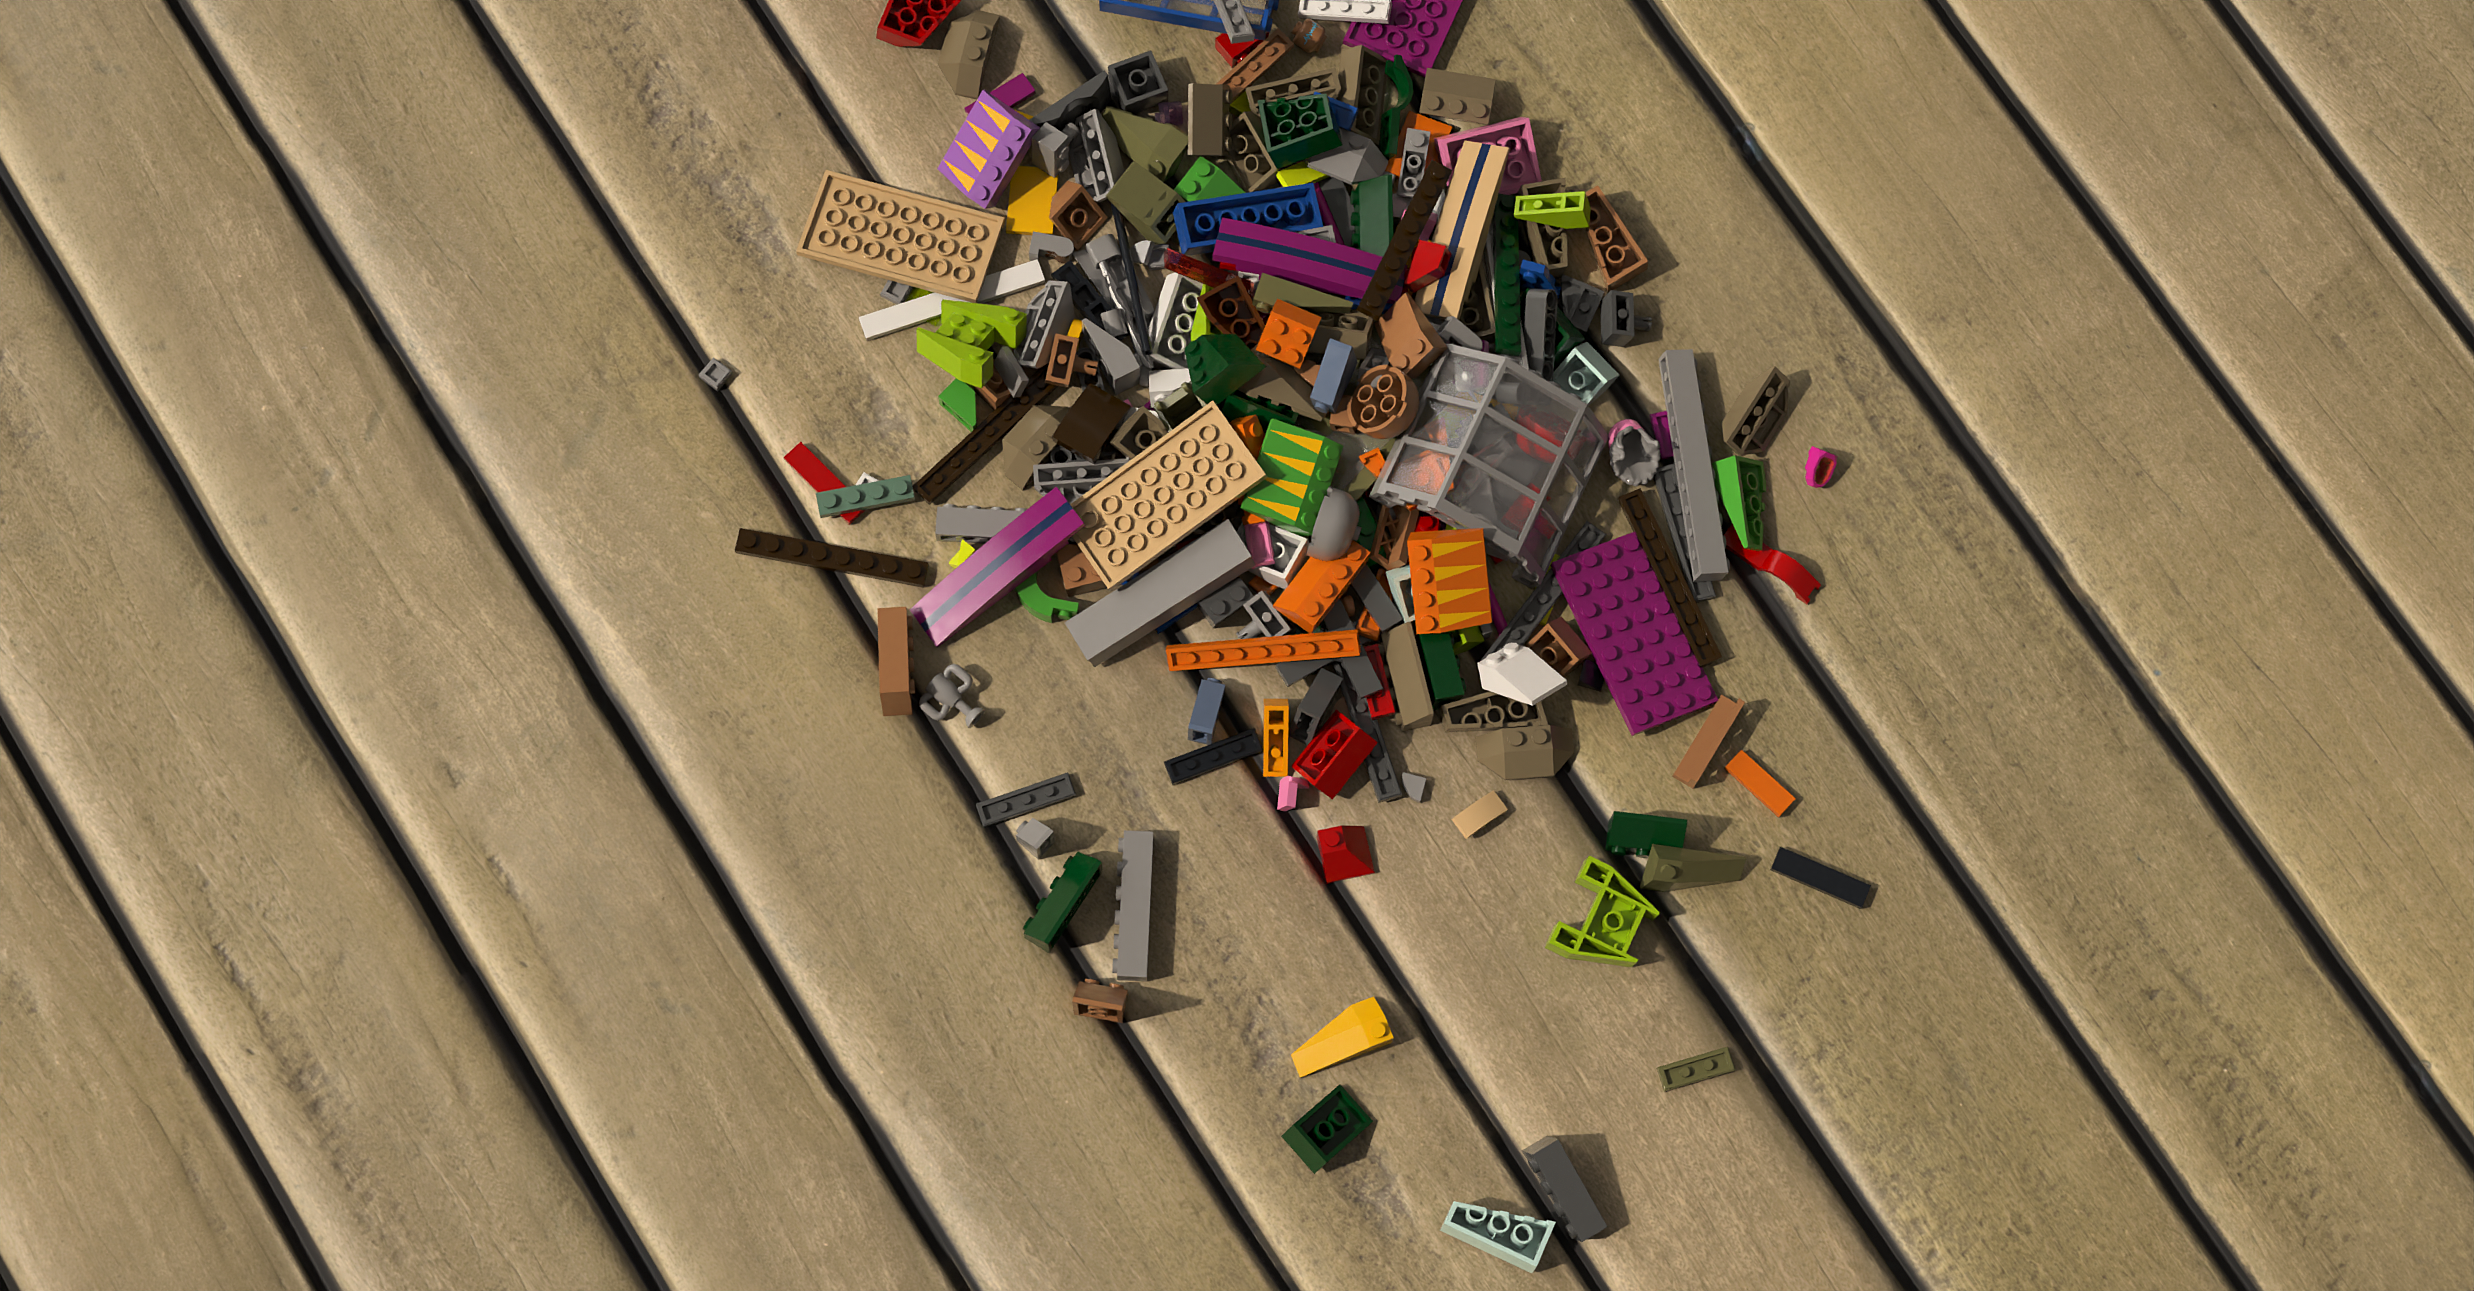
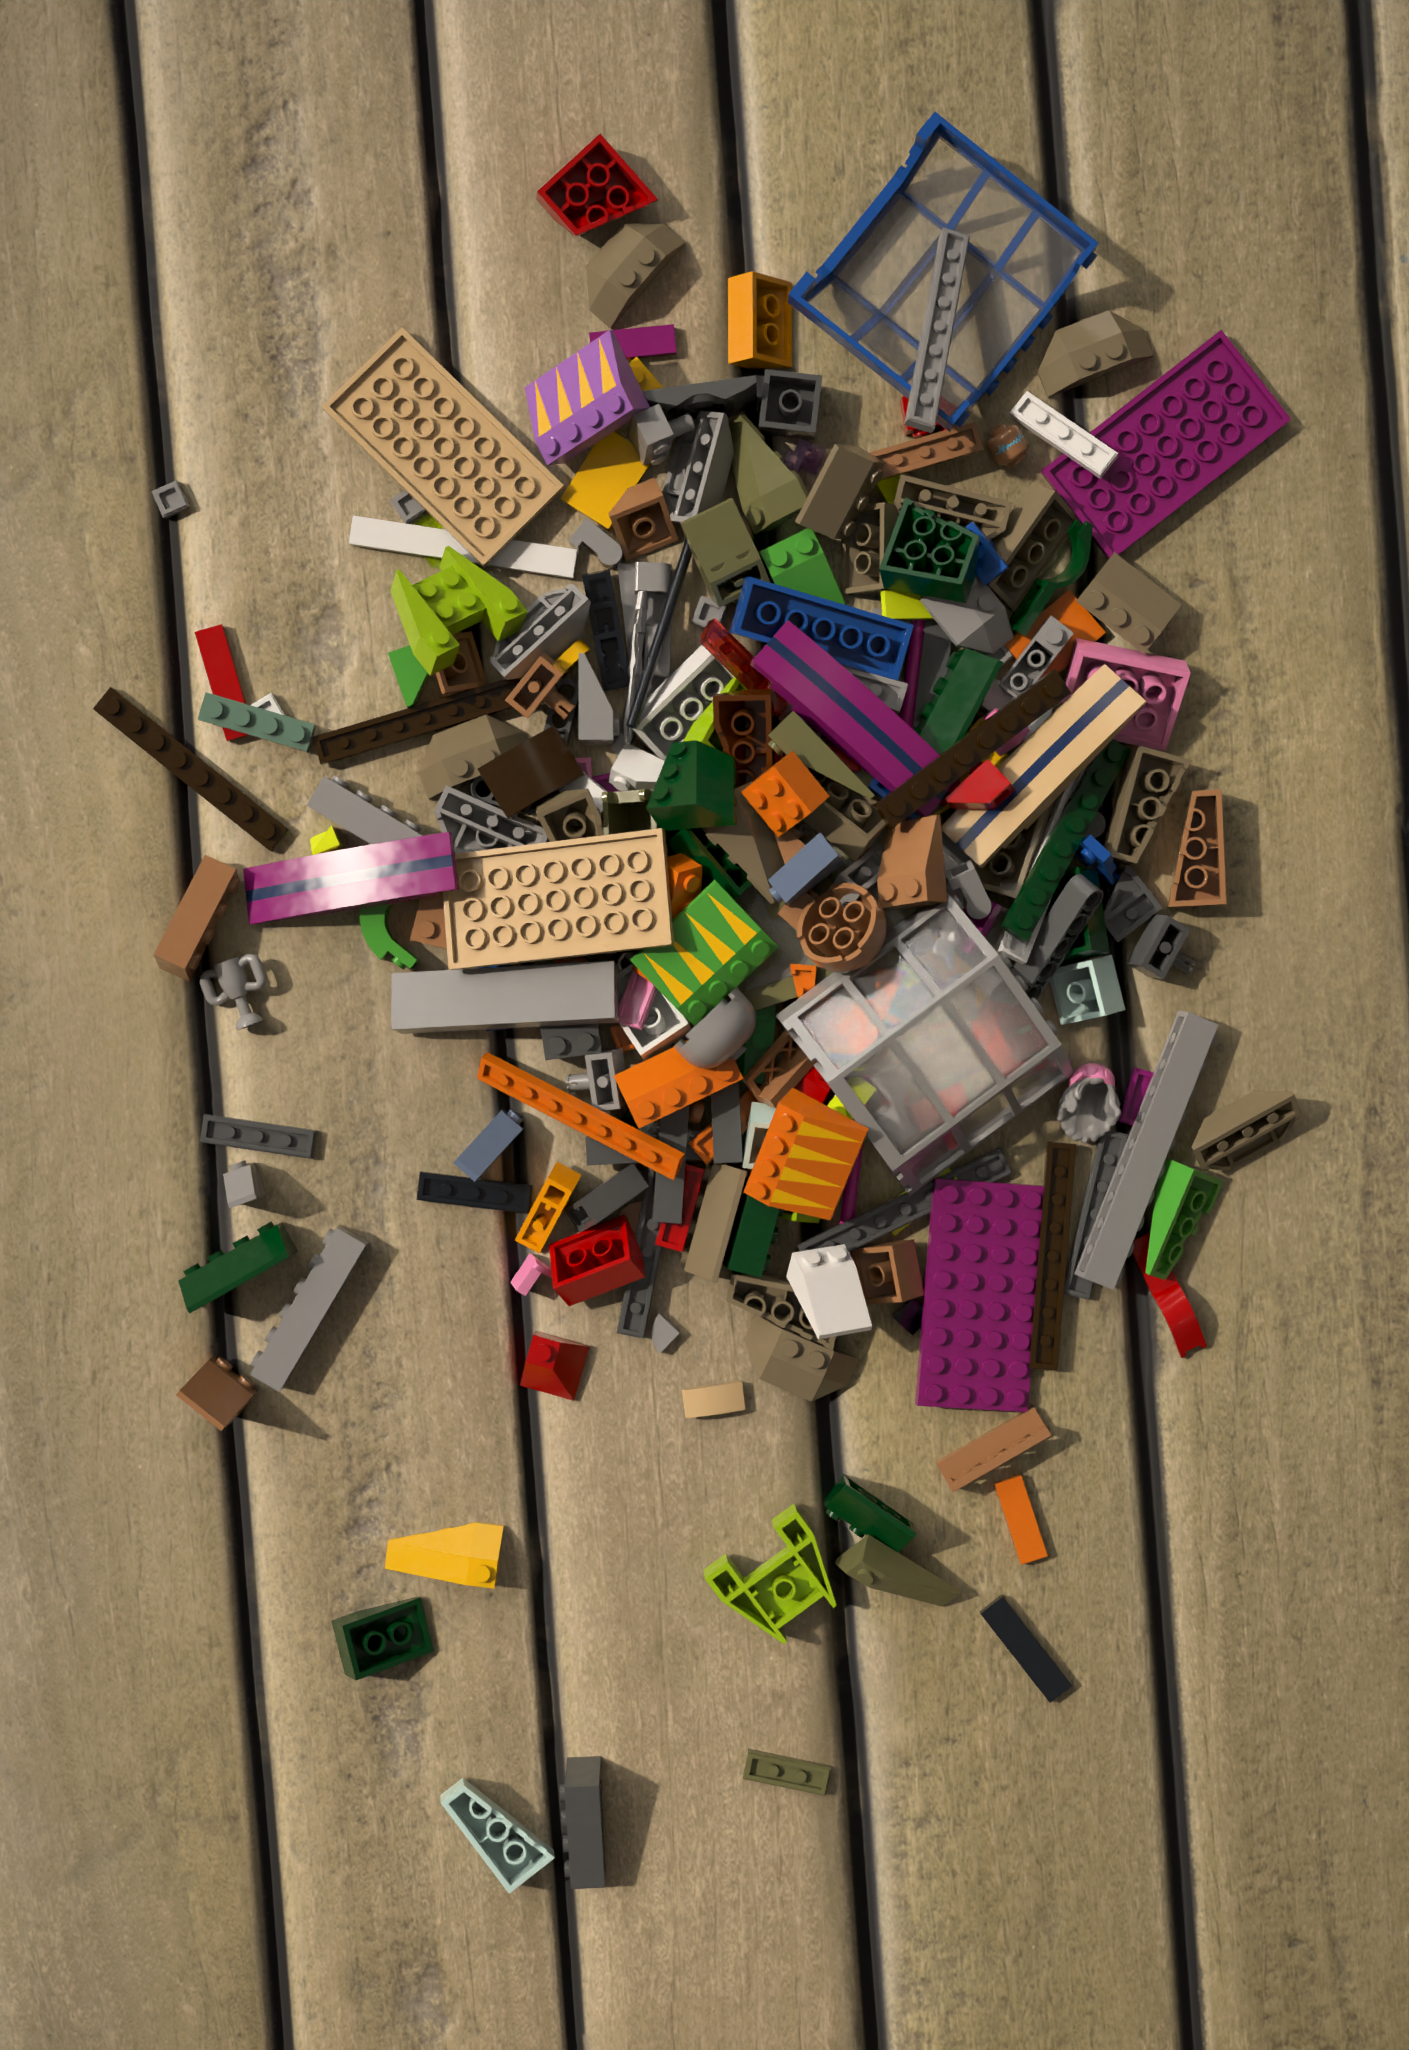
camera: 30 degrees right, 15 degrees up
(1011, 372) = (479, 666): light grey tile -> none
(1083, 40) = (759, 322): none -> light orange slope
(1114, 322) = (617, 669): light grey piece -> none
(1142, 251) = (691, 601): light grey tile -> none
(1555, 209) = (1157, 795): lime slope -> none
(1819, 467) = (1280, 1220): dark pink rock -> none

